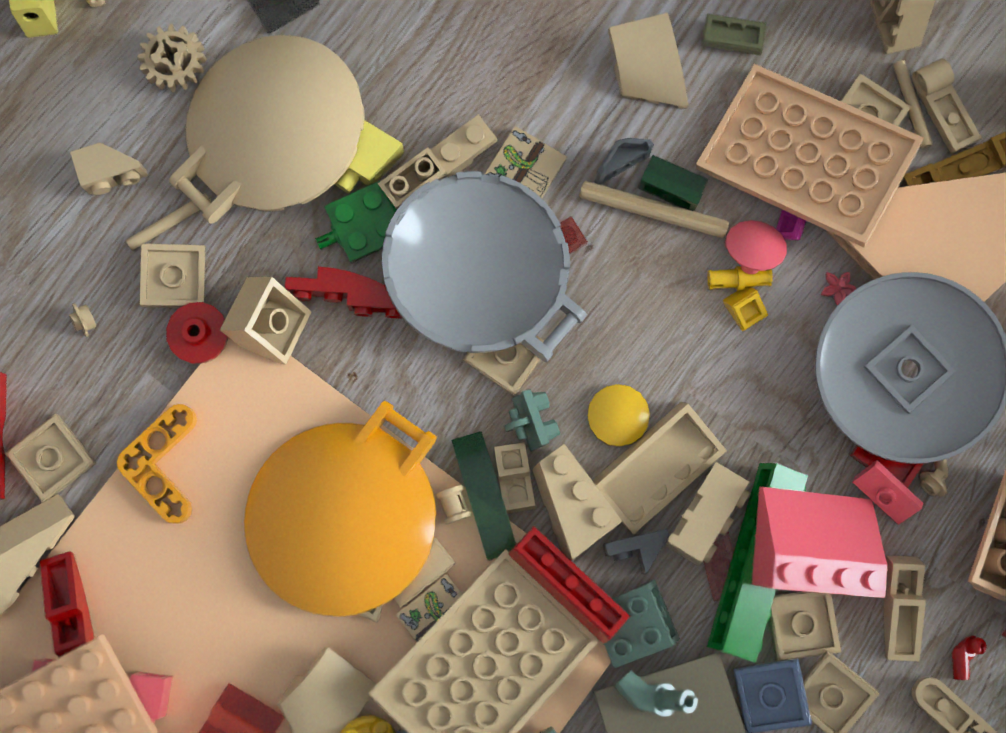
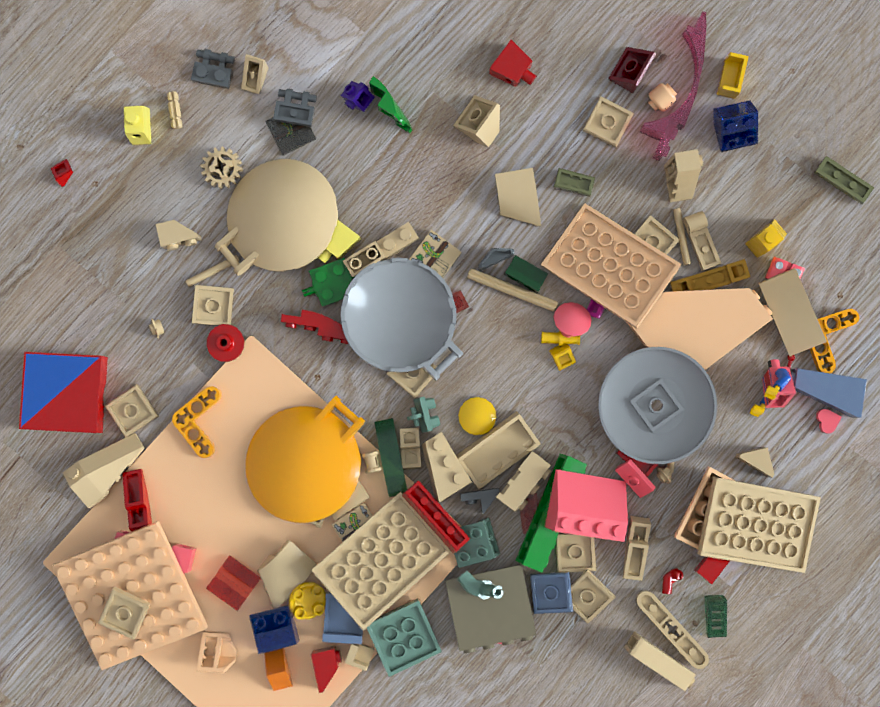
camera: 10 degrees right, 5 degrees up
(266, 319) = (268, 339): tan slope -> none
(838, 287) = (621, 349): coral plant -> none

